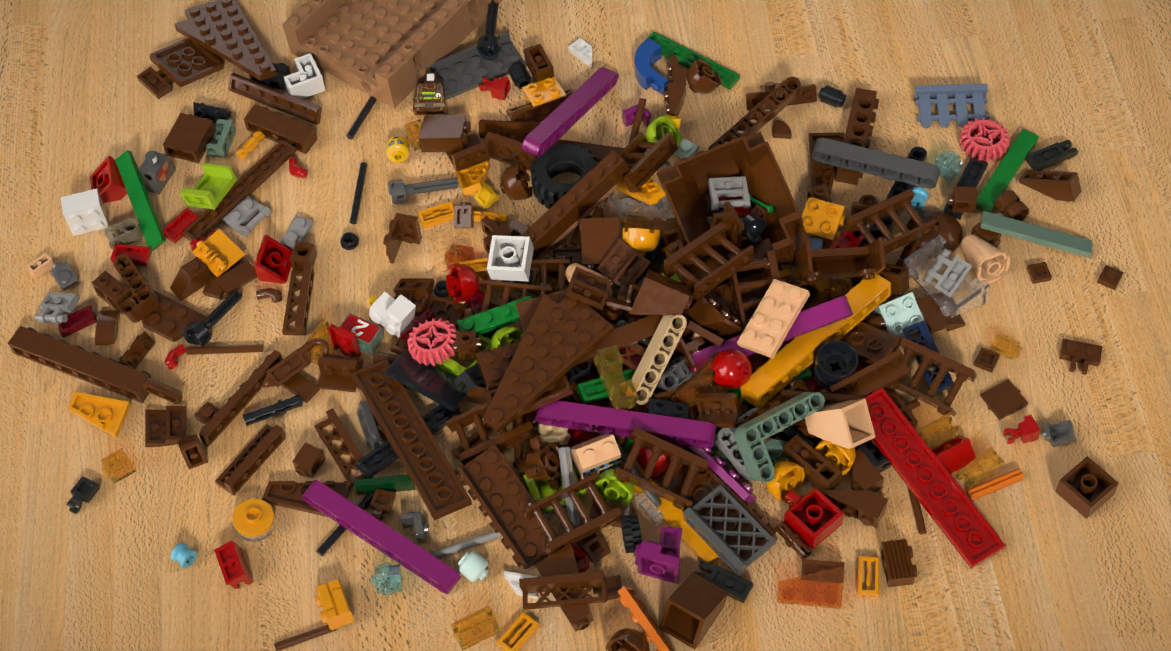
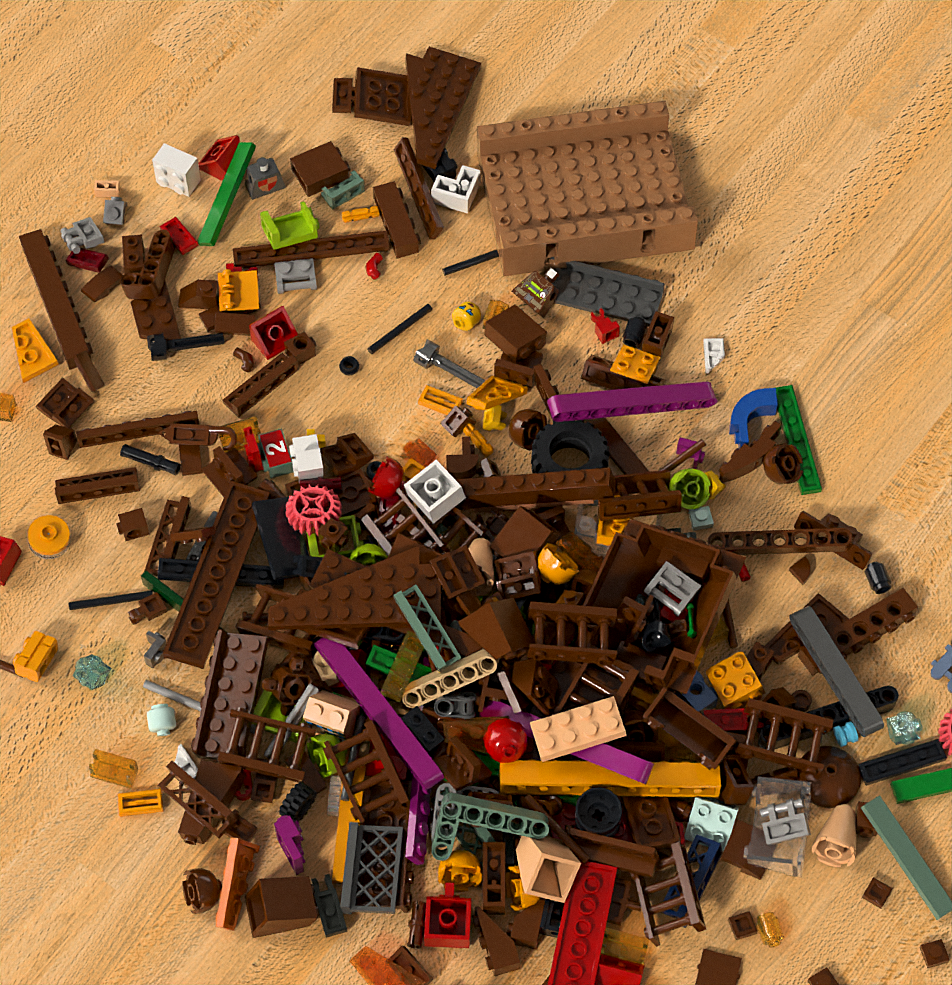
camera: 40 degrees right, 5 degrees up
(125, 232) = (190, 212): dark tan piece -> none
(137, 351) = (104, 323): reddish brown hinge -> none
(172, 355) = (126, 349): red arm -> none
(174, 229) = (237, 240): red plate -> none
(206, 413) = (103, 418): reddish brown plate -> none
(210, 112) = (356, 155): black hinge -> none
(224, 349) = (168, 377): reddish brown bar -> none
(289, 494) = (109, 559): reddish brown wing -> none
(297, 231) = (318, 323): light grey plate -> none
(360, 431) = (187, 535): none -> reddish brown plate
(381, 537) = (119, 634): magenta beam -> none
(401, 229) = (387, 390): reddish brown bracket -> none
(489, 42) = (632, 280): black piece -> none
(492, 318) = (375, 529): green plate -> none
(509, 129) = (567, 375): reddish brown bracket -> none
(610, 339) = (421, 633): none -> sand green fence
(671, 540) = (320, 837): magenta bracket -> none
(963, 199) = (879, 770): reddish brown brick -> none
(1011, 206) = (917, 815): reddish brown wheel -> none

